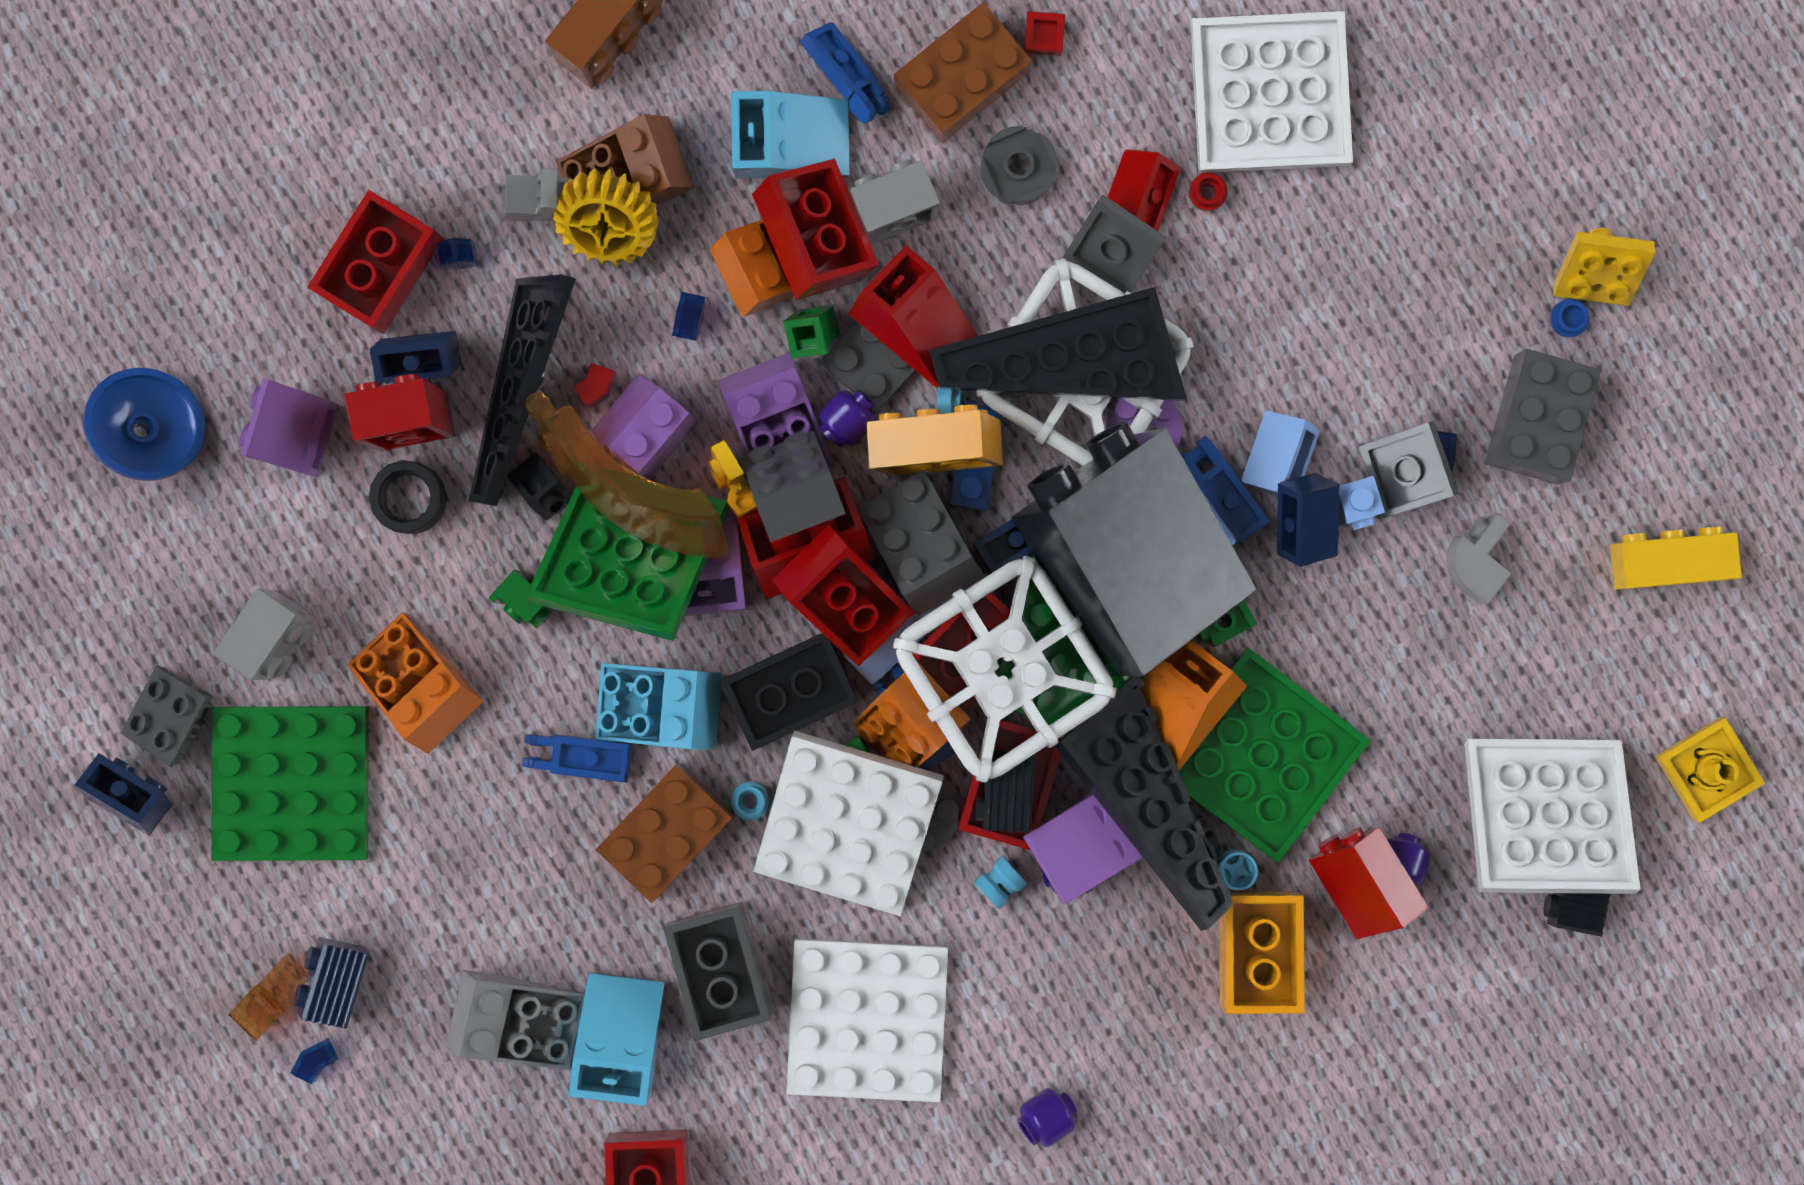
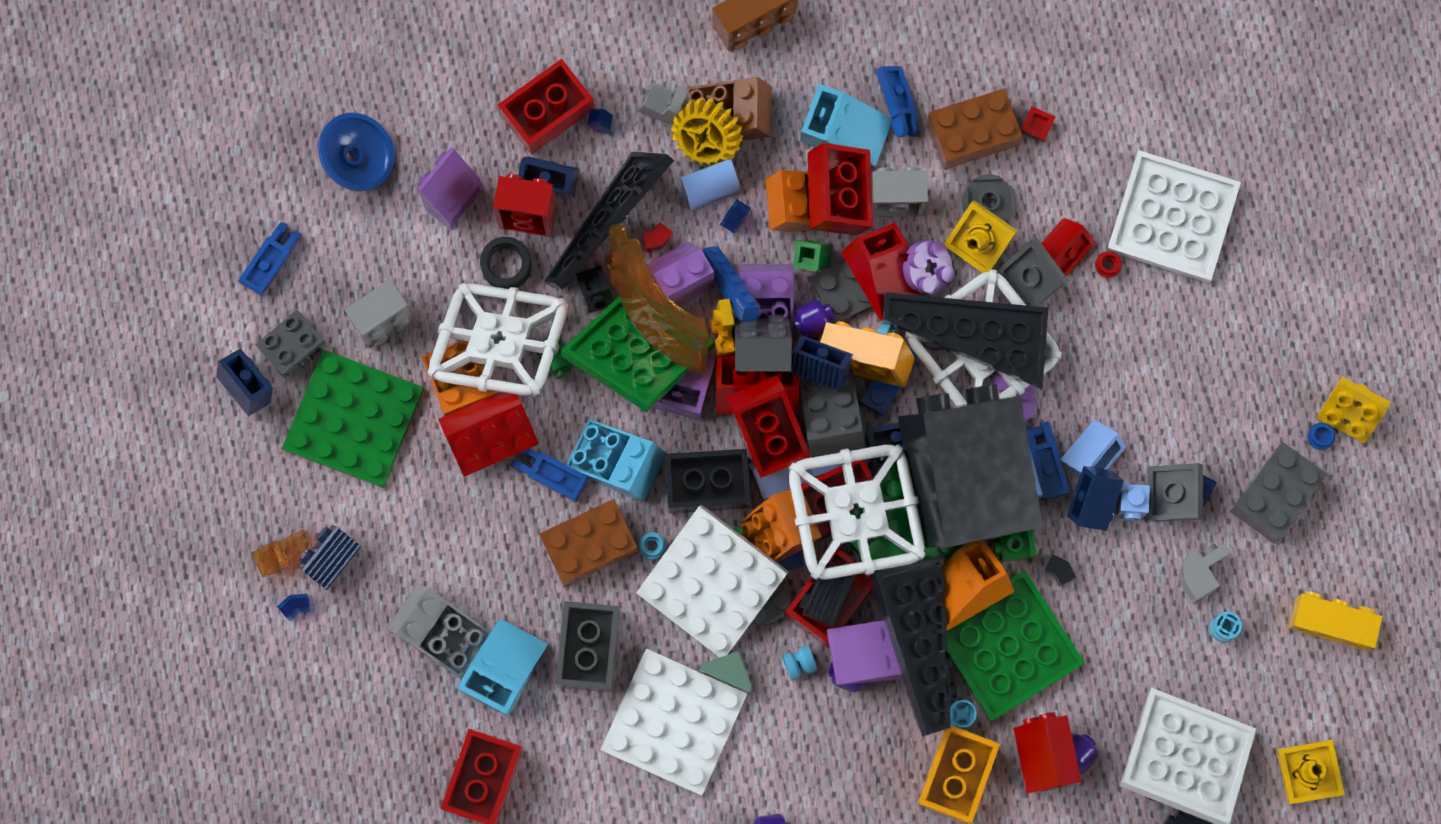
camera: 20 degrees right, 10 degrees down
(90, 614) = (269, 260): none -> blue hinge
(456, 624) = (507, 353): none -> white plate
(473, 738) = (488, 432): none -> red brick
(638, 285) = (710, 184): none -> light blue brick
(718, 416) = (731, 285): none -> blue piece
(880, 482) = (821, 363): none -> dark blue brick
(913, 929) = (728, 670): none -> sand green slope
(990, 287) = (941, 267): none -> medium lavender plate
(1023, 235) = (975, 246): none -> yellow plate
(1293, 628) = (1060, 570): none -> black piece
(1528, 624) = (1221, 628): none -> medium azure wheel

